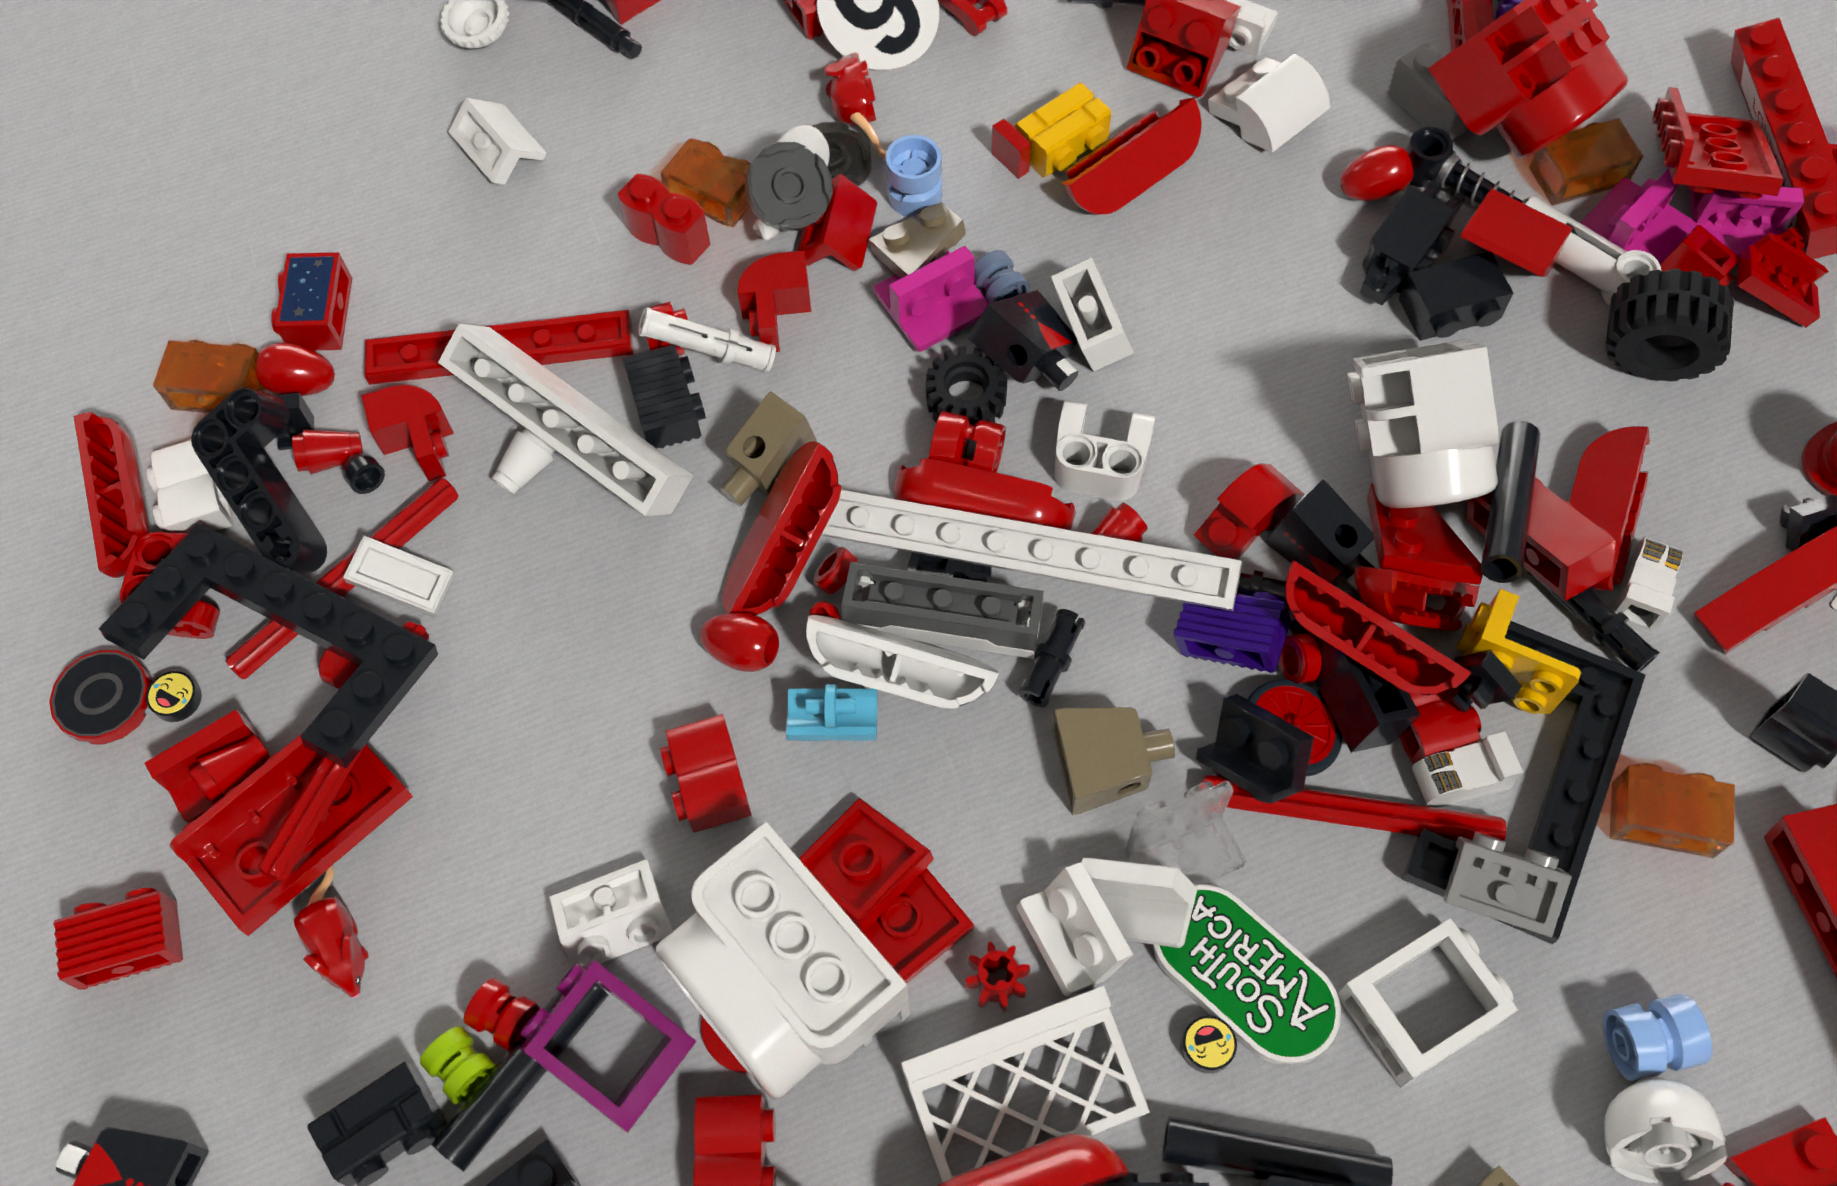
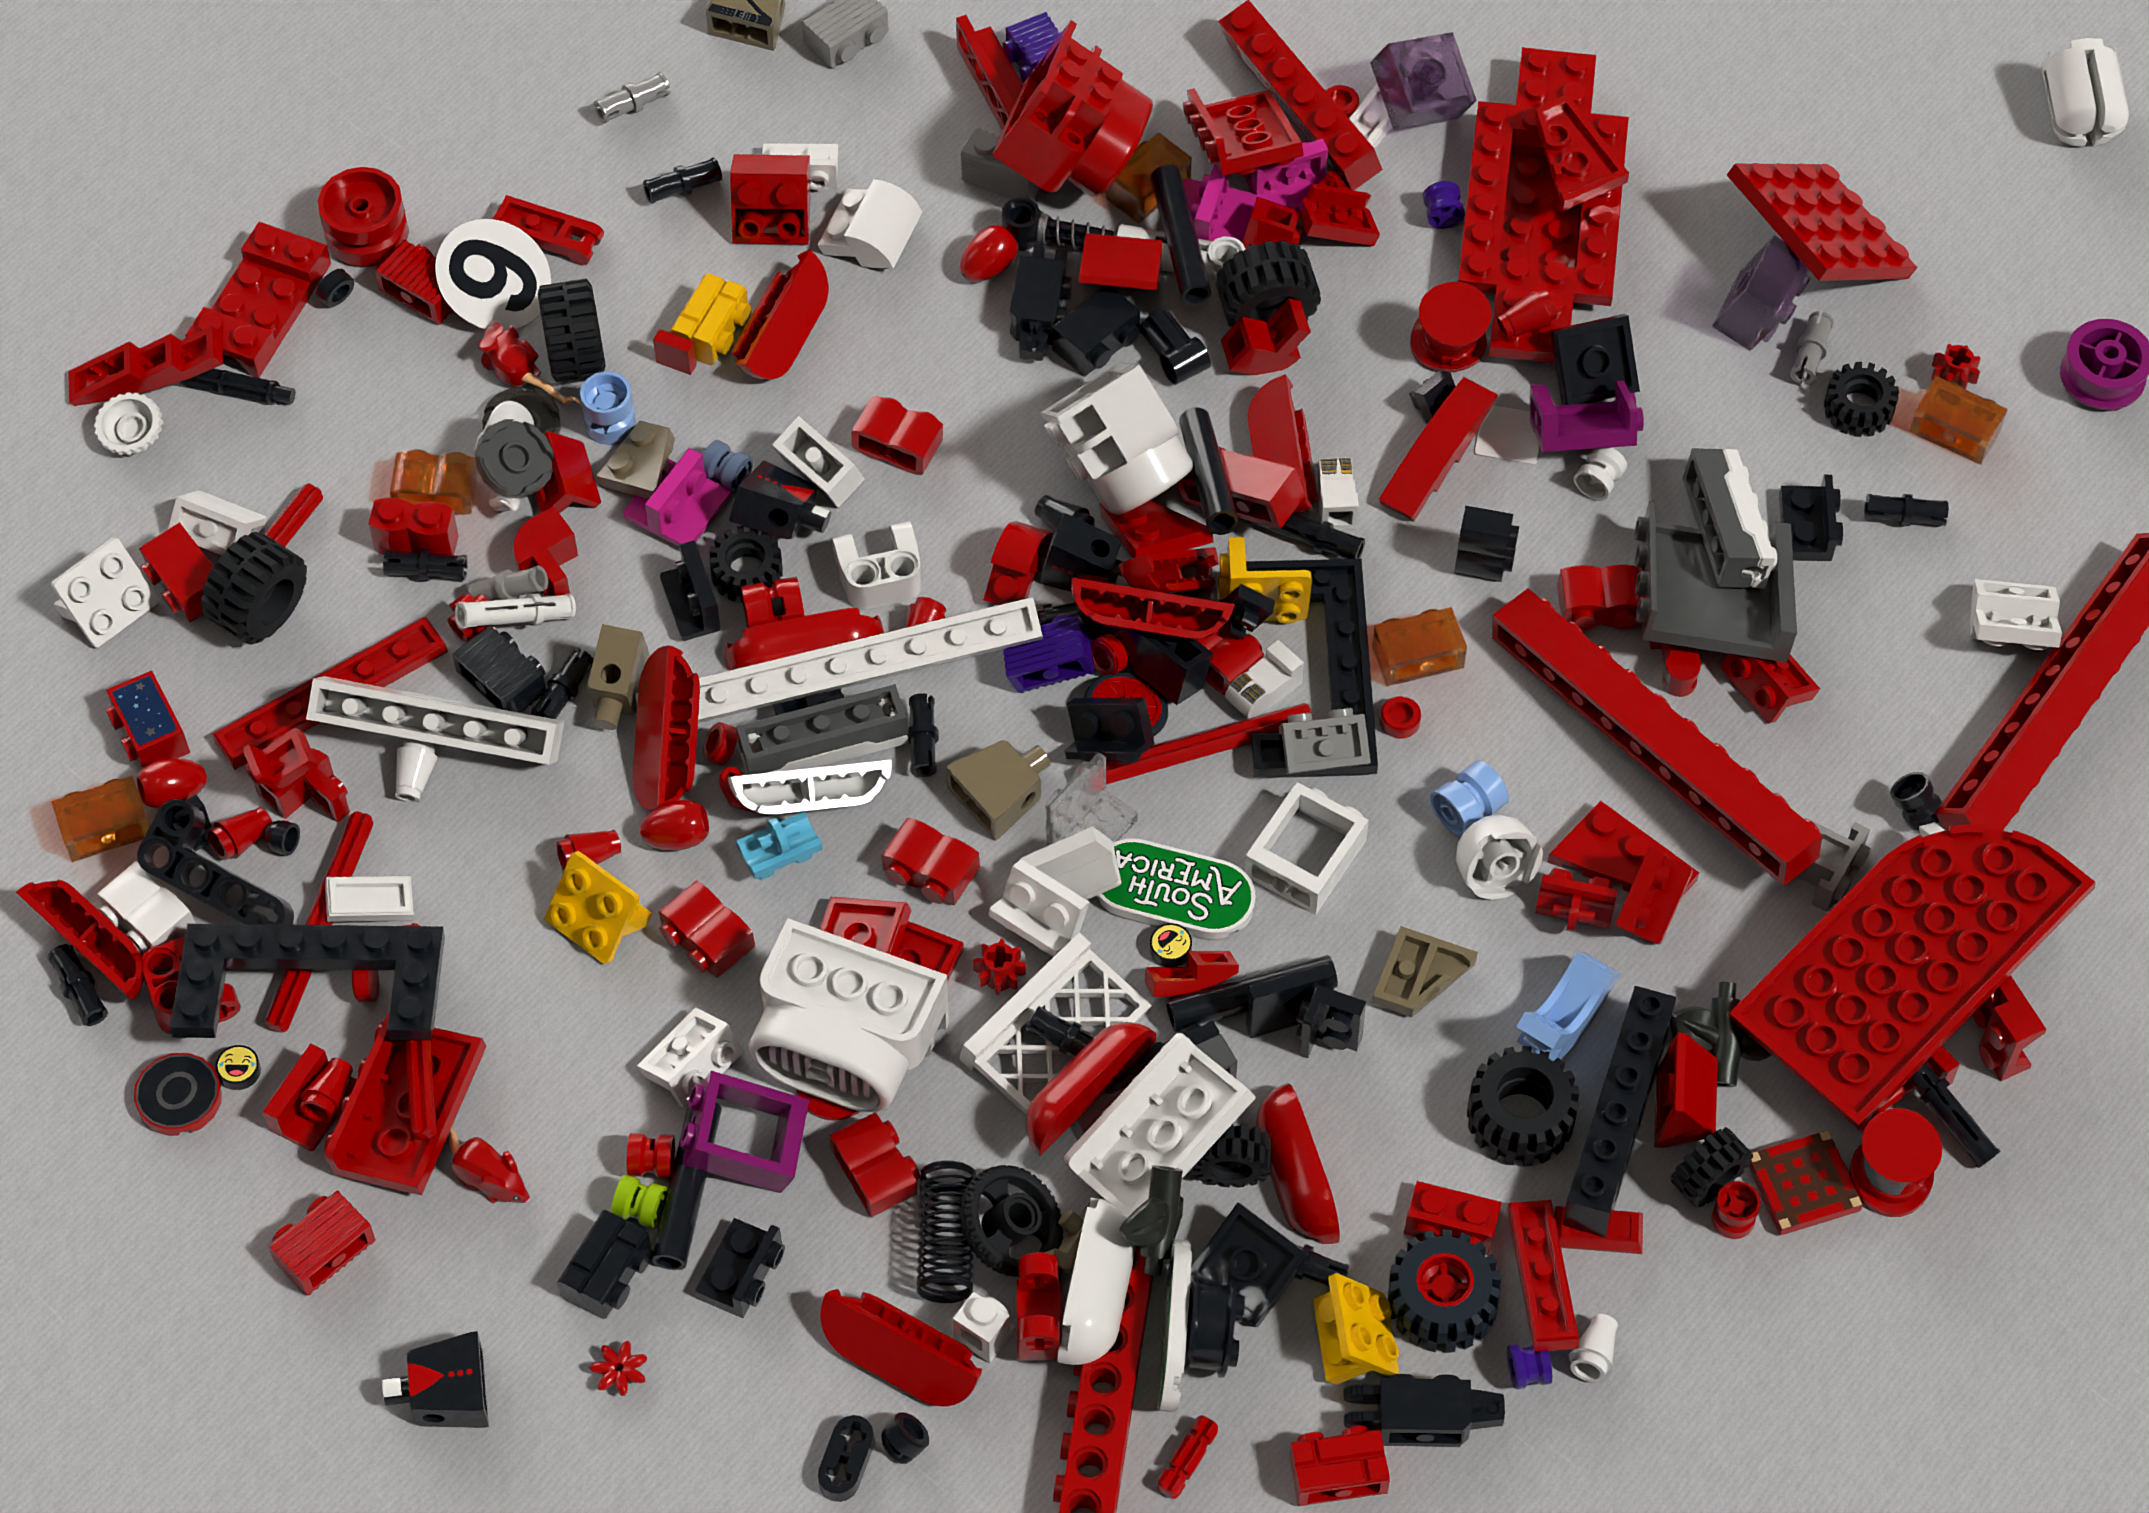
camera: 30 degrees left, 5 degrees down
(82, 551) = (77, 985): none -> black pin
(350, 160) = (103, 592): none -> white bracket
(382, 396) = (280, 761): none -> red bracket
(431, 172) = (180, 569): none -> red brick
(474, 211) = (254, 587): none -> black tyre
(549, 172) = (295, 514): none -> red axle
(609, 695) = (595, 908): none -> yellow bracket
(639, 624) = (594, 845): none -> red cone
(658, 259) = (425, 565): none -> black pin
(711, 440) = (563, 685): none -> black pin
(719, 312) = (510, 584): none -> light grey pin
(892, 398) = (691, 595): none -> black bracket
(916, 83) = (571, 330): none -> black tyre
(985, 810) = (930, 862): none -> red brick
(1024, 1104) = (1059, 1032): none -> black pin
(1191, 320) = (897, 434): none -> red brick
(1228, 1103) = (1202, 971): none -> red slope
(1316, 467) = (1052, 510): none -> black cone
(1534, 356) = (1178, 353): none -> black piece
(1596, 230) = (1180, 234): none -> black piece
(1611, 886) = (1400, 717): none -> red tile
(1642, 389) = (1268, 346): none -> red brick

